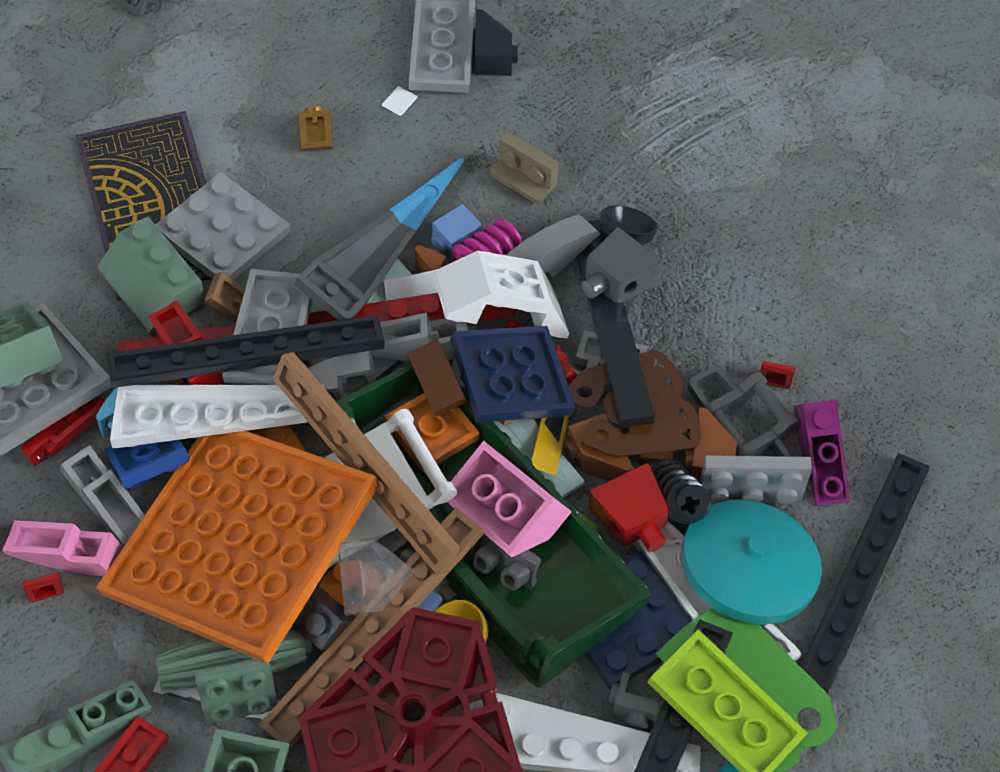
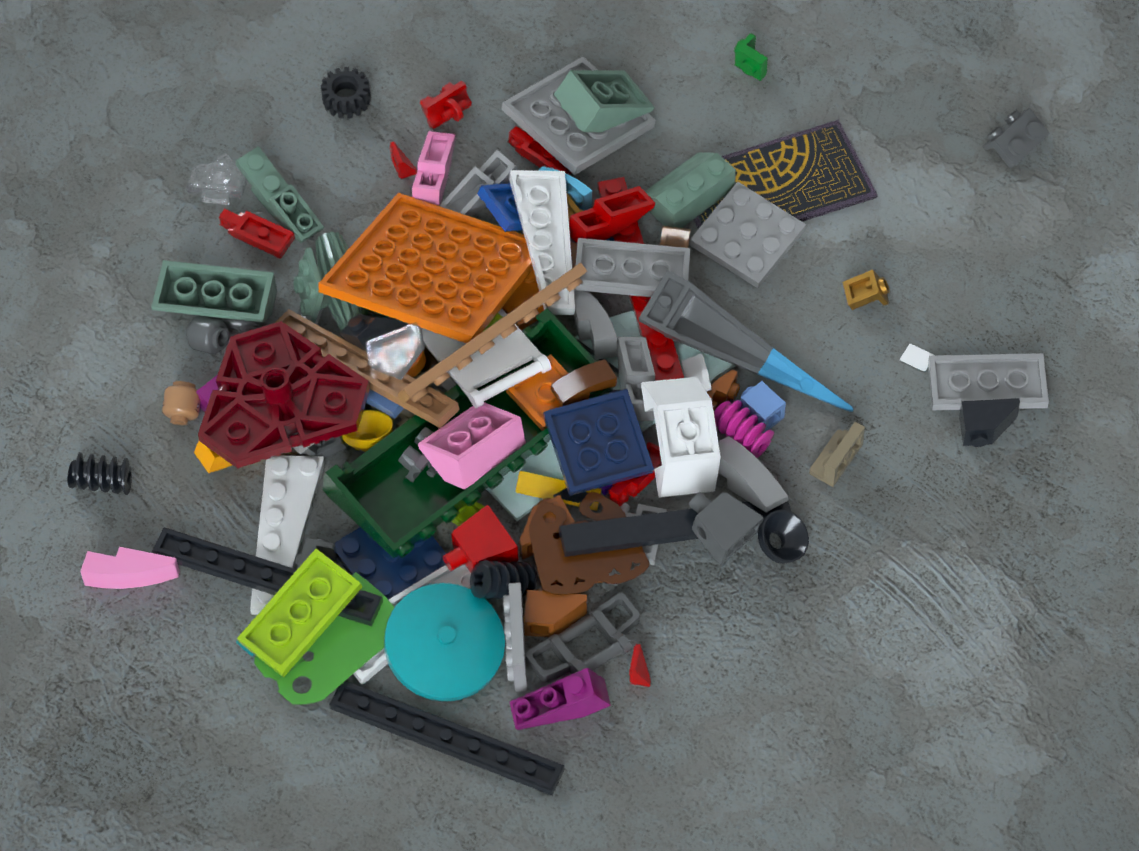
camera: 90 degrees right, 0 degrees up
(244, 351) = (598, 250): black tile -> none

